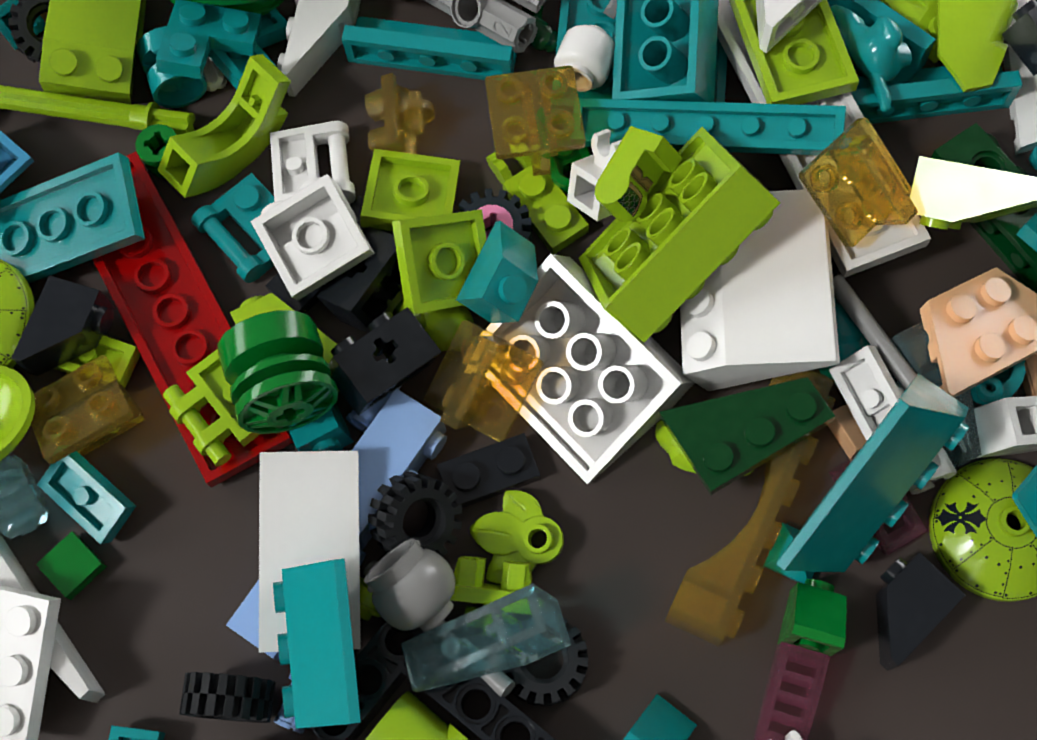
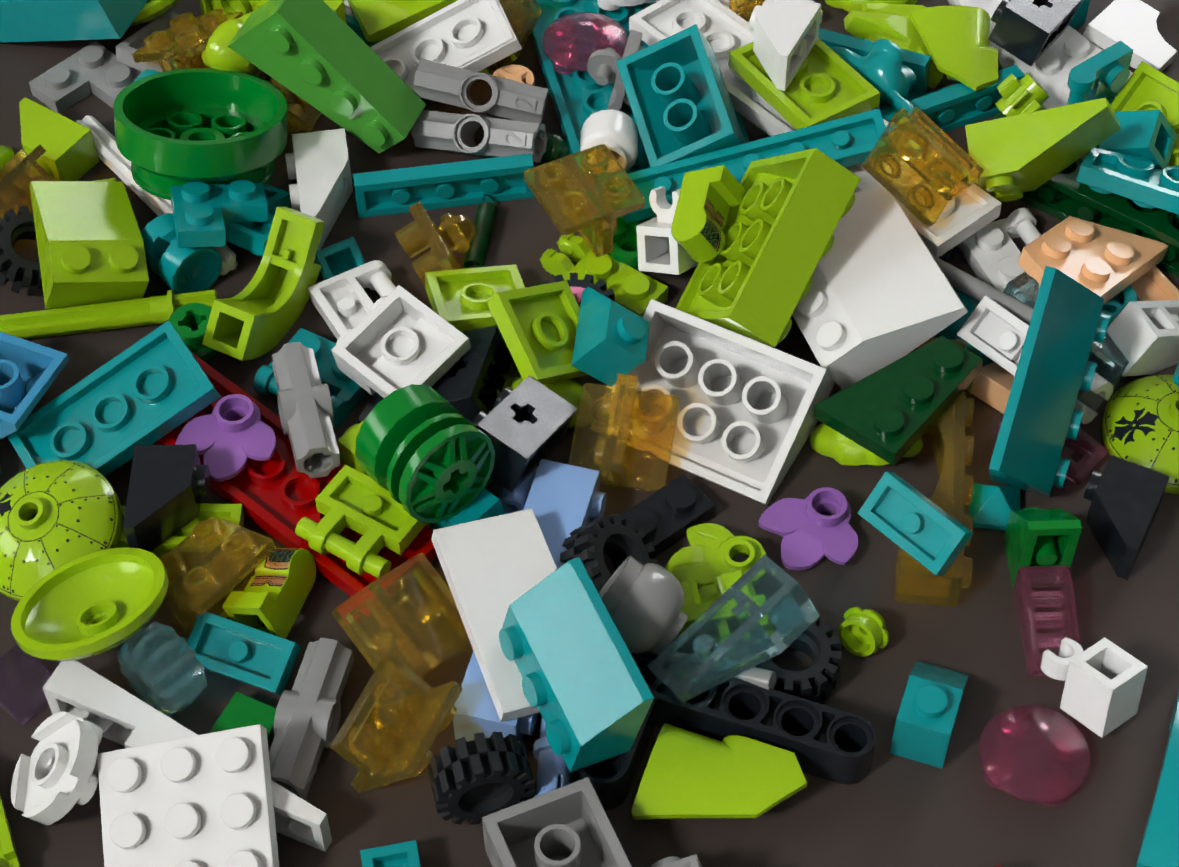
camera: 25 degrees left, 20 degrees down
(116, 580) = (309, 715): none -> light grey piece
(132, 445) = (274, 592): none -> lime leg
(140, 284) = (229, 442): none -> medium lavender plate
(171, 625) = (394, 725): none -> clear yellow bracket
(213, 272) = (305, 410): none -> light grey piece
(218, 517) = (407, 617): none -> clear yellow slope
(309, 109) = (338, 258): none -> teal slope
(444, 116) = (483, 225): none -> dark green piece
(611, 530) = (808, 533): none -> medium lavender plate
(619, 651) = (863, 631): none -> lime plate
(695, 578) = (915, 523): none -> teal plate
(912, 279) = (994, 253): none -> white plate
(1008, 113) = (1021, 95): none -> lime gear

